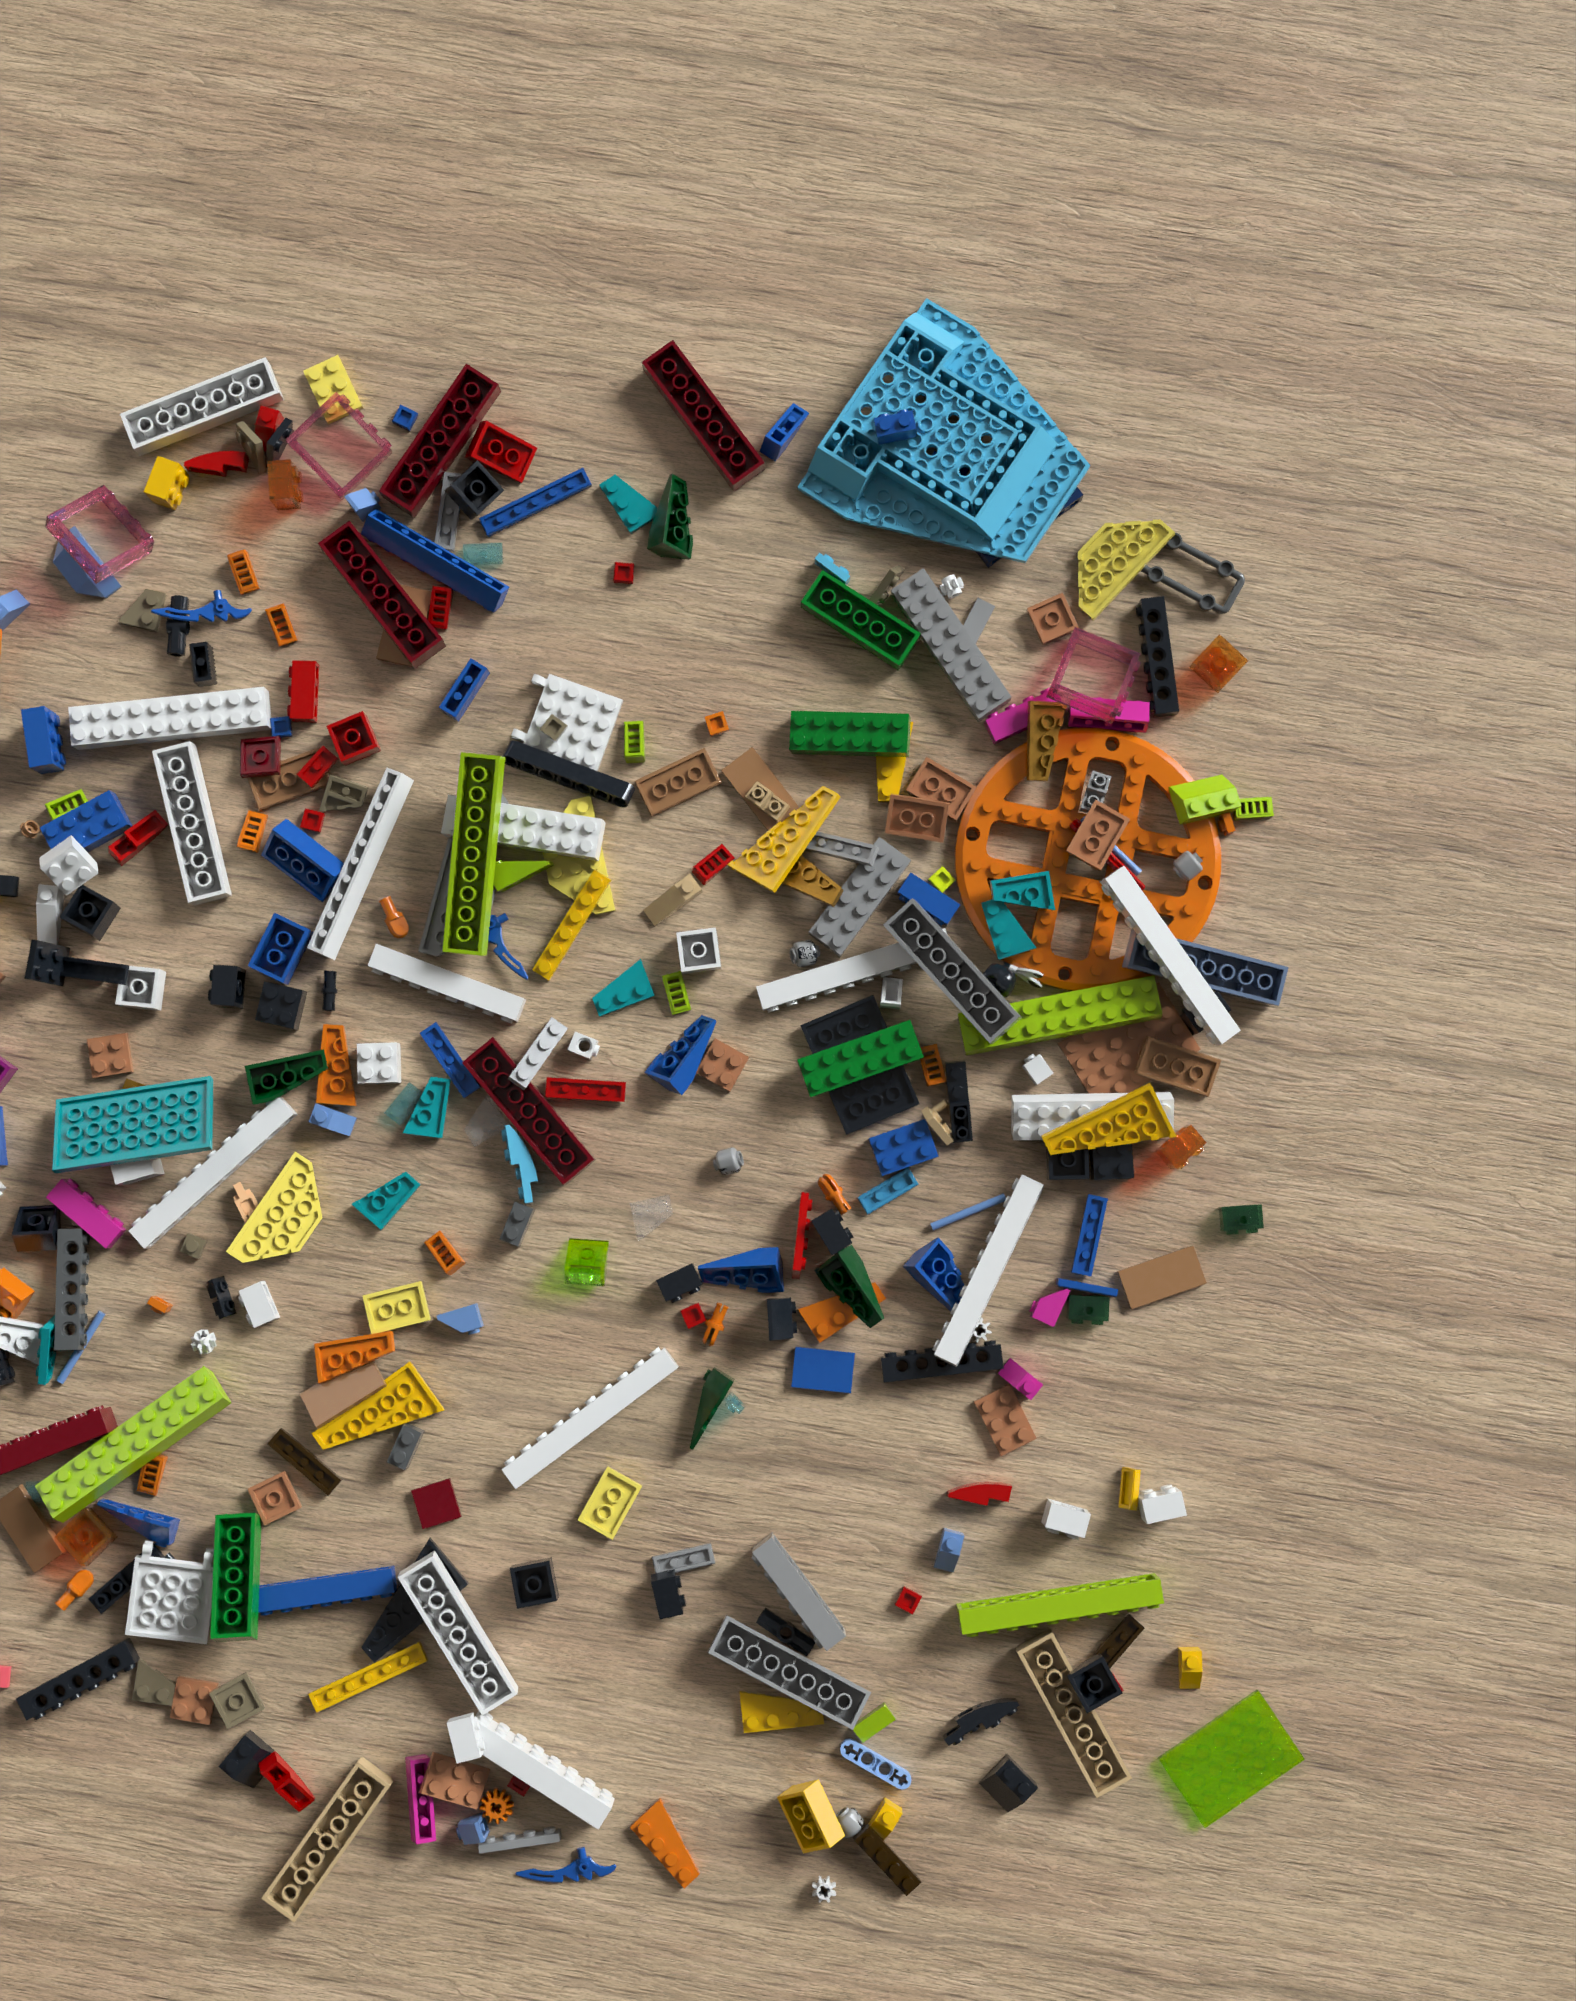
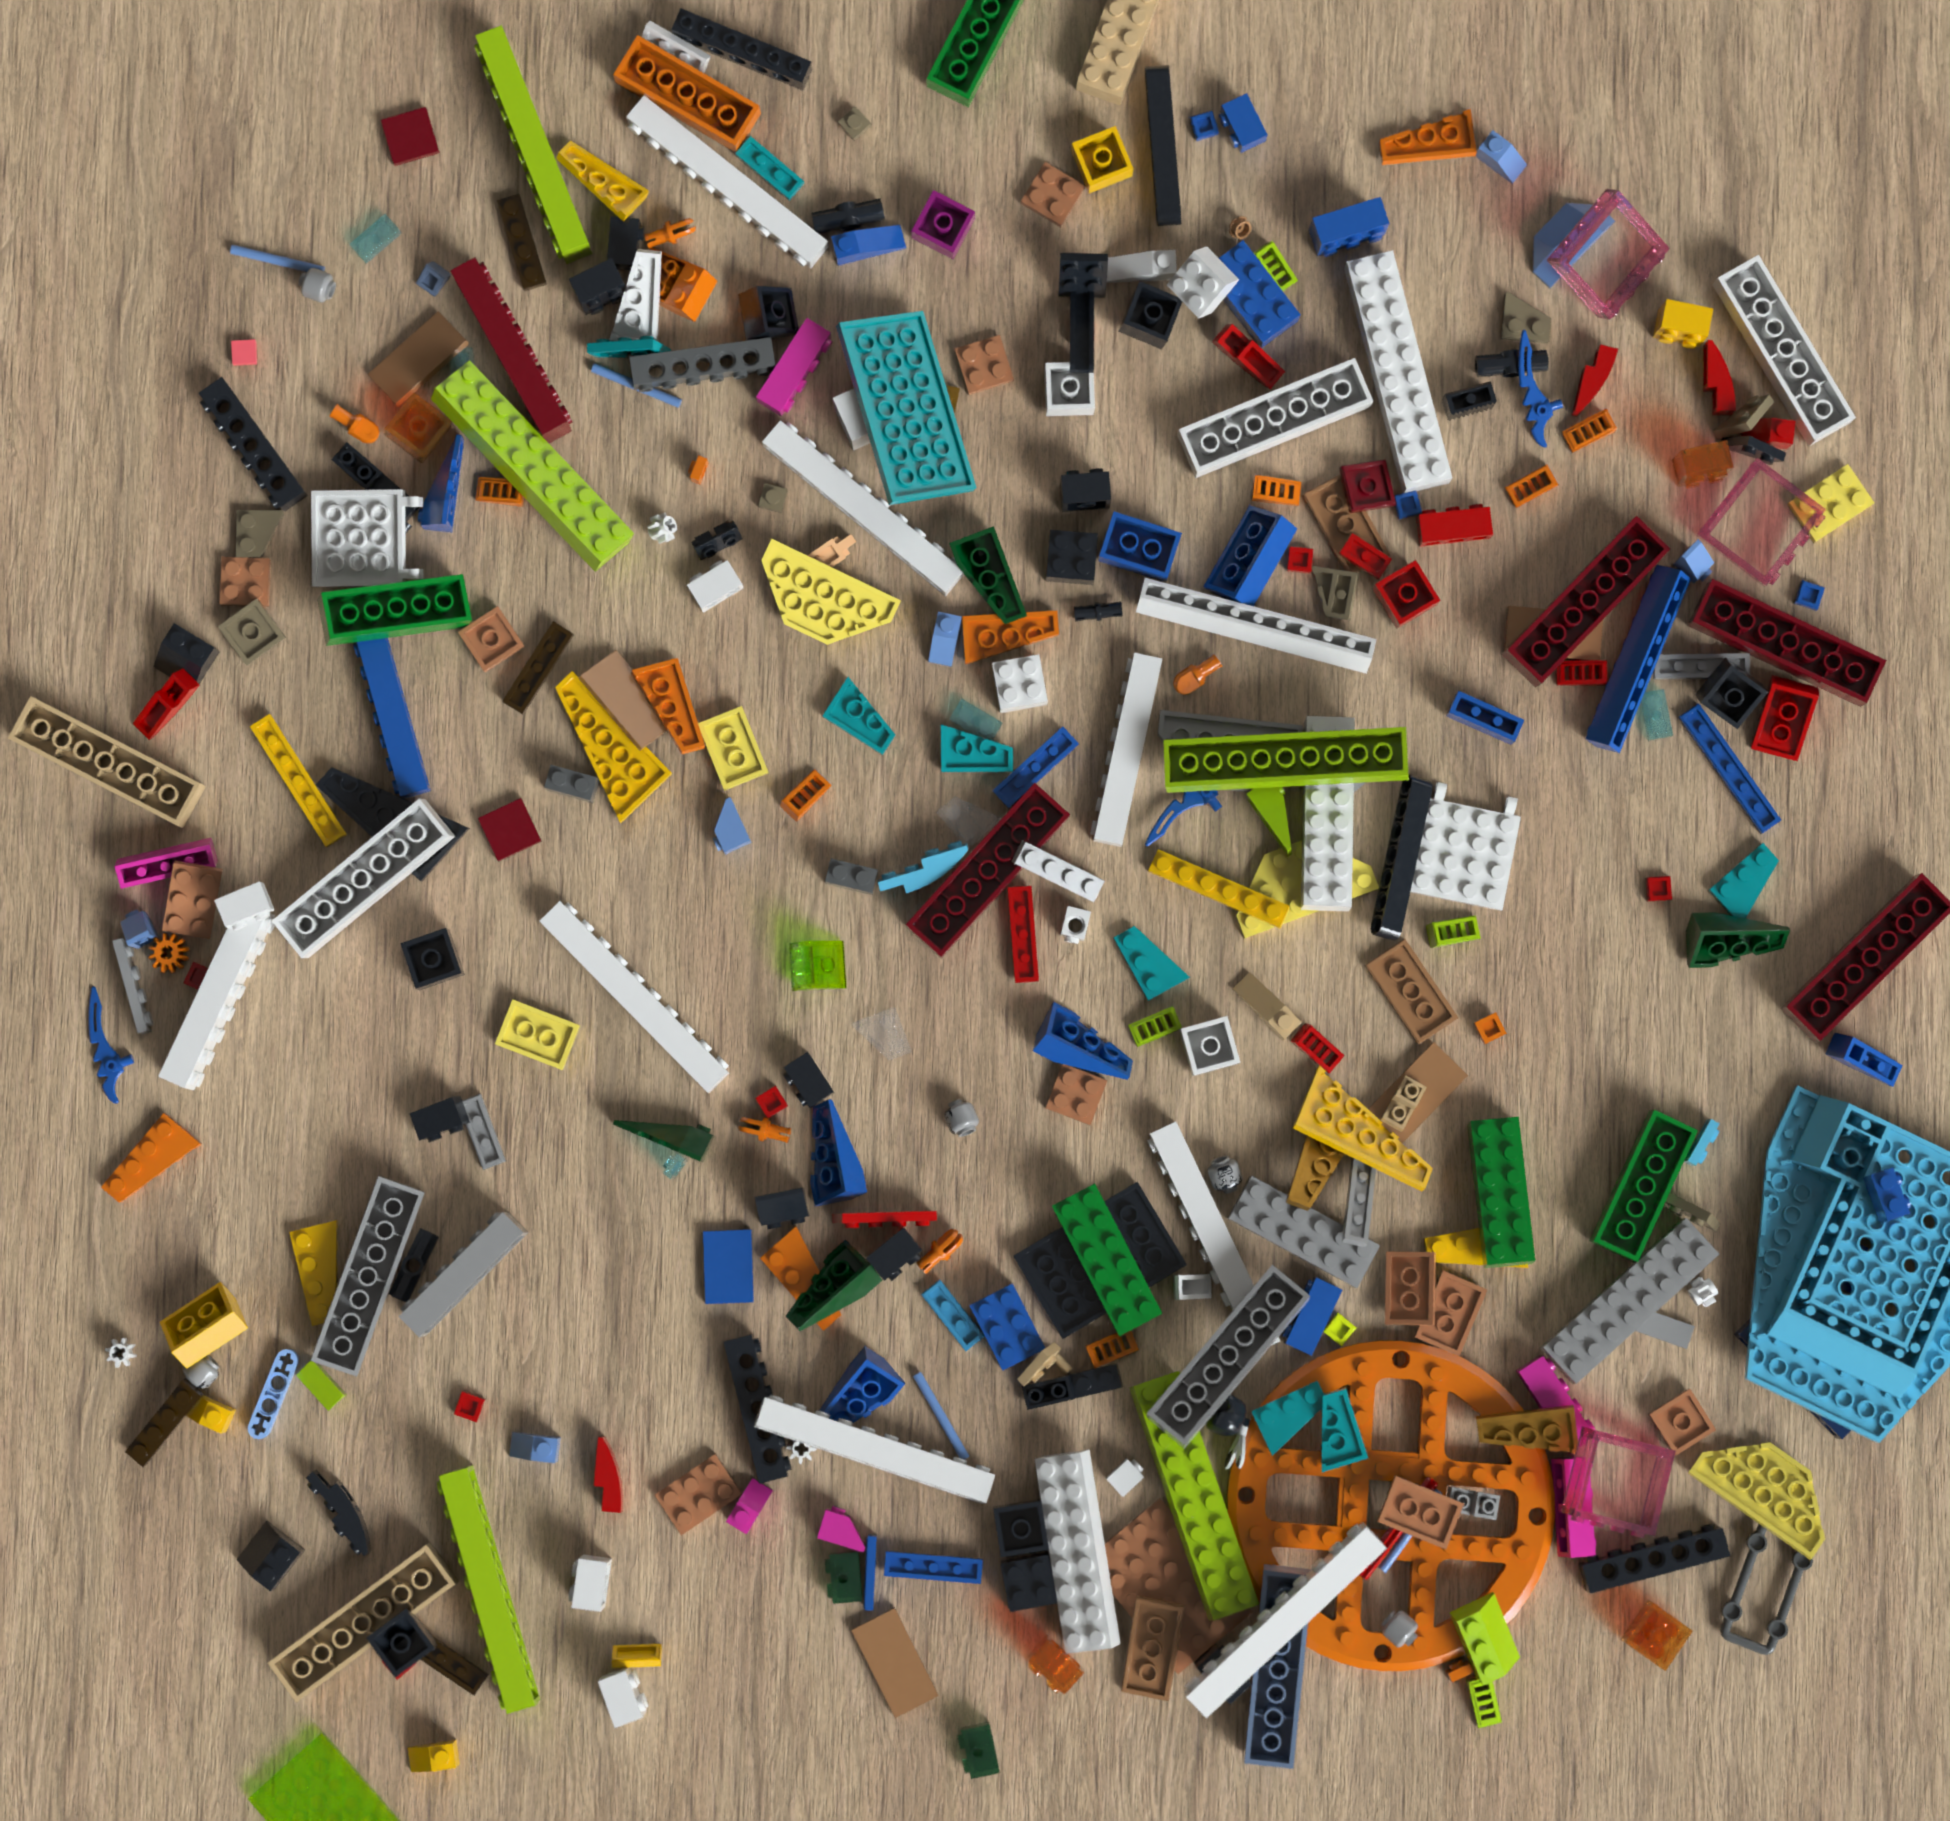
camera: 75 degrees right, 0 degrees up
(199, 561) = (1594, 377): none -> red slope
(554, 727) = (1454, 832): dark tan plate -> none
(1119, 1122) = (1073, 1583): yellow wing -> none

